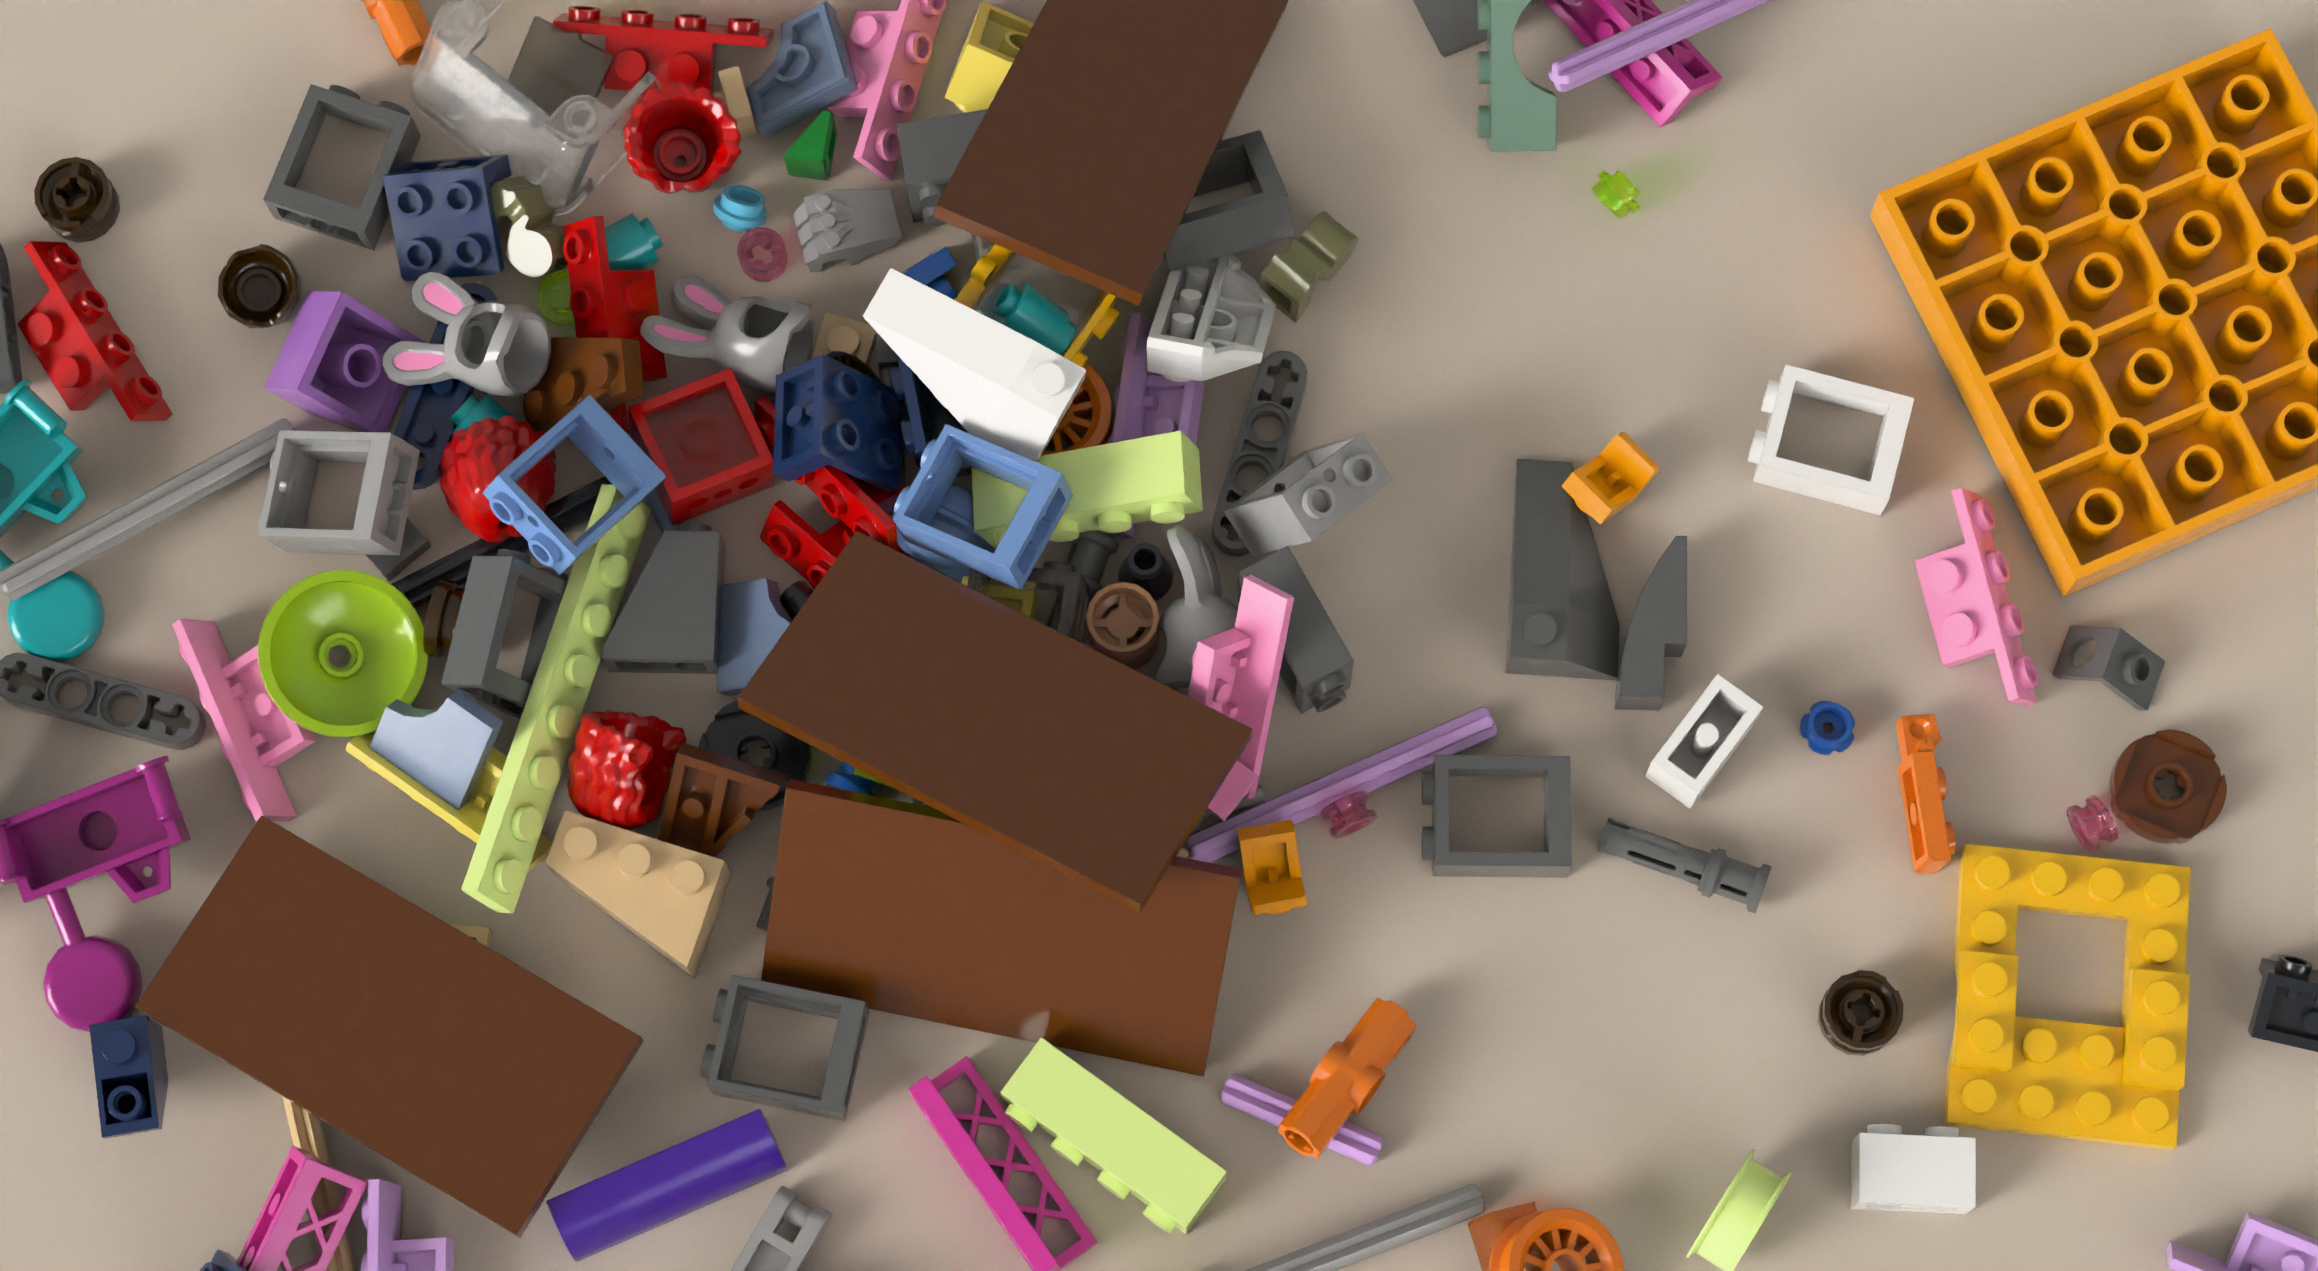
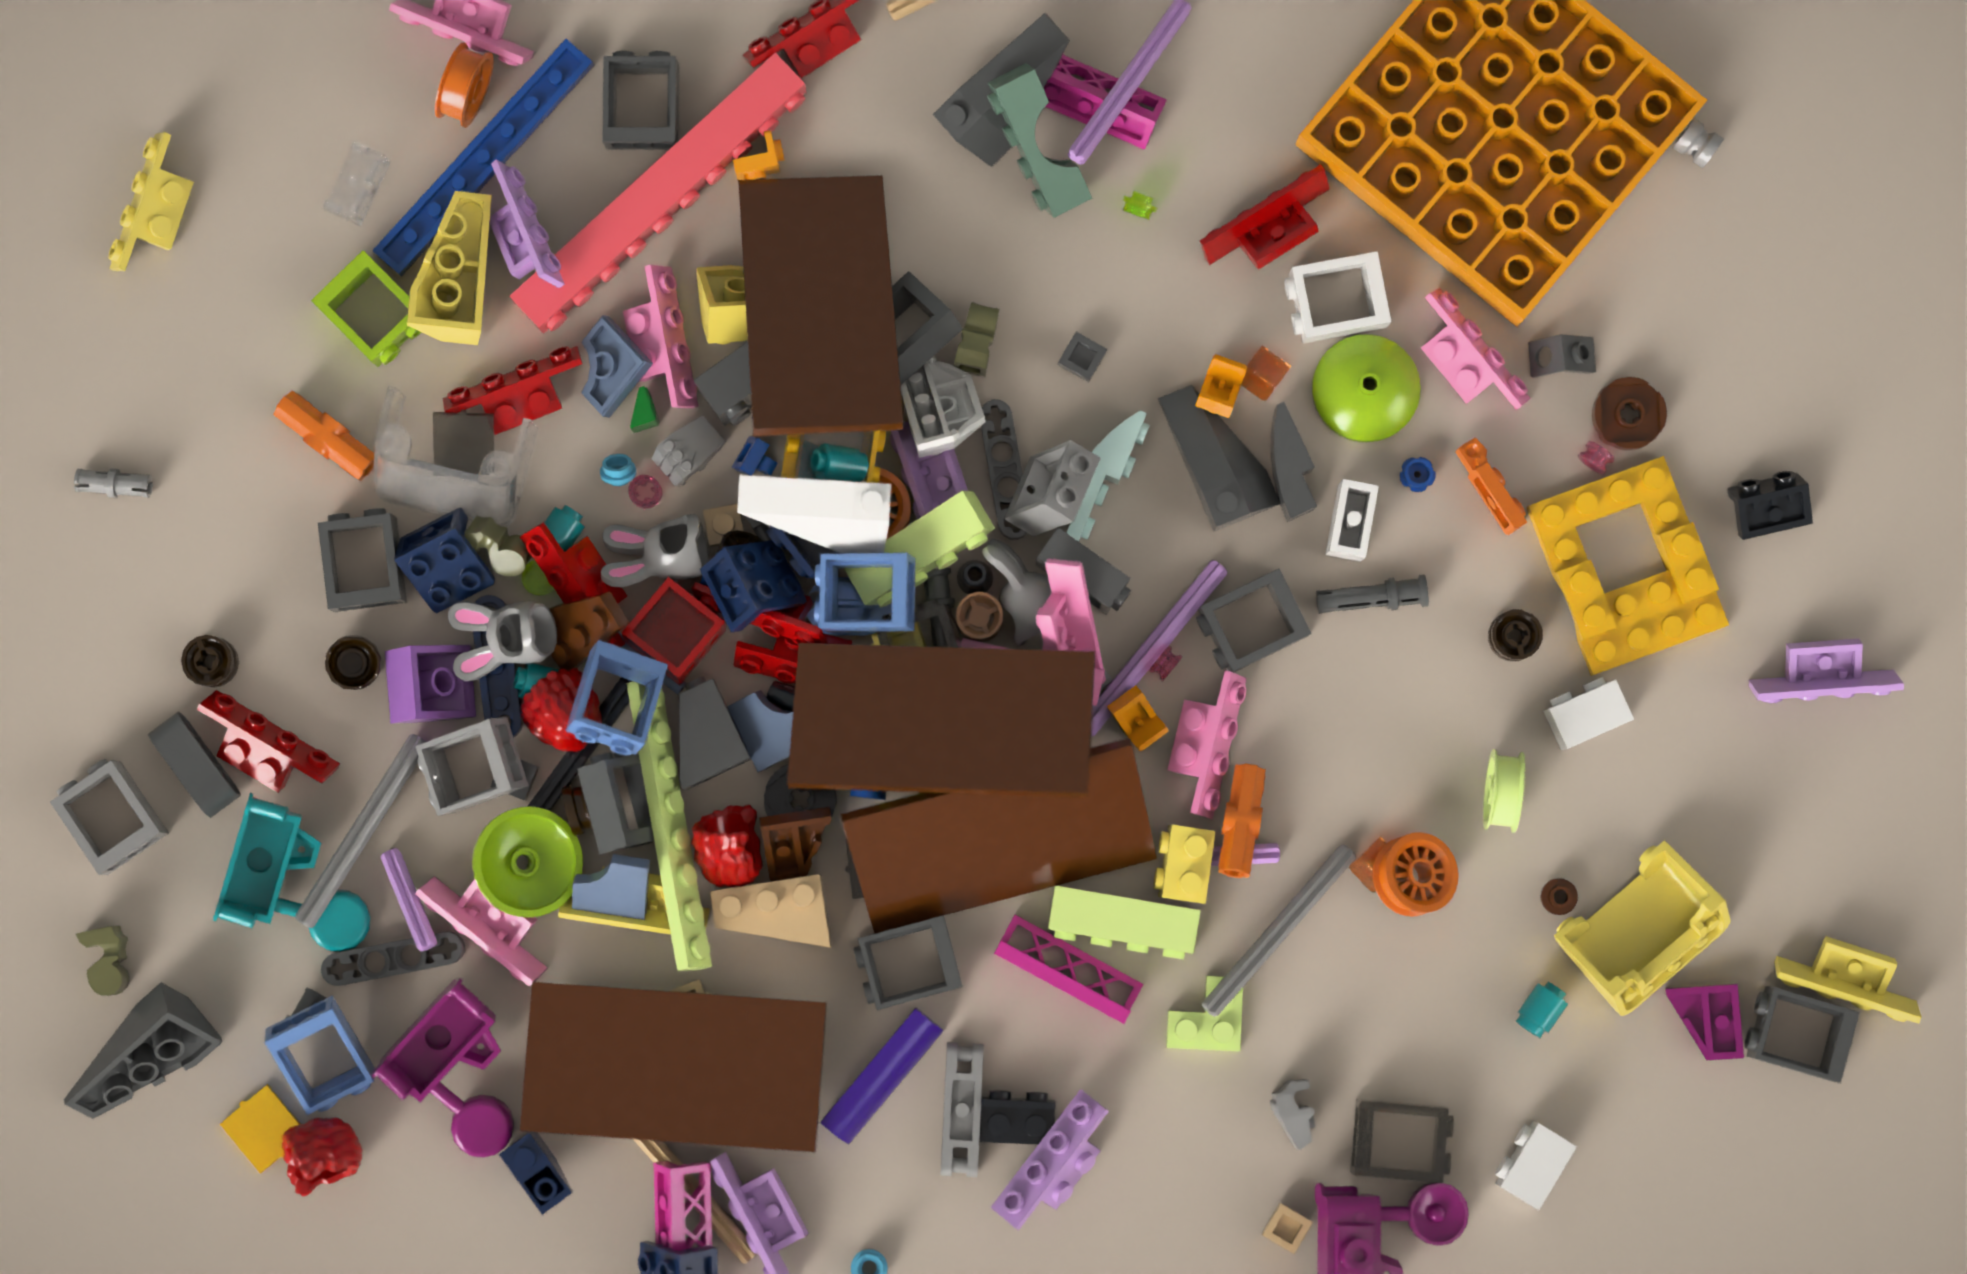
camera: 30 degrees left, 10 degrees up
(159, 634) = (409, 902): none -> lavender axle
(685, 126) = (563, 435): red hair -> none
(736, 99) = (579, 406): tan plate -> none
(1239, 1100) = (1185, 863): none -> light yellow bracket
(1351, 950) = (1205, 742): none -> bright pink bracket
(1405, 507) = (1113, 463): none -> light aqua slope
(1439, 353) = (1082, 356): none -> dark grey plate
(1679, 494) = (1264, 373): none -> clear orange slope
(1784, 299) = (1271, 225): none -> red bracket
(1804, 614) = (1360, 412): none -> lime dish

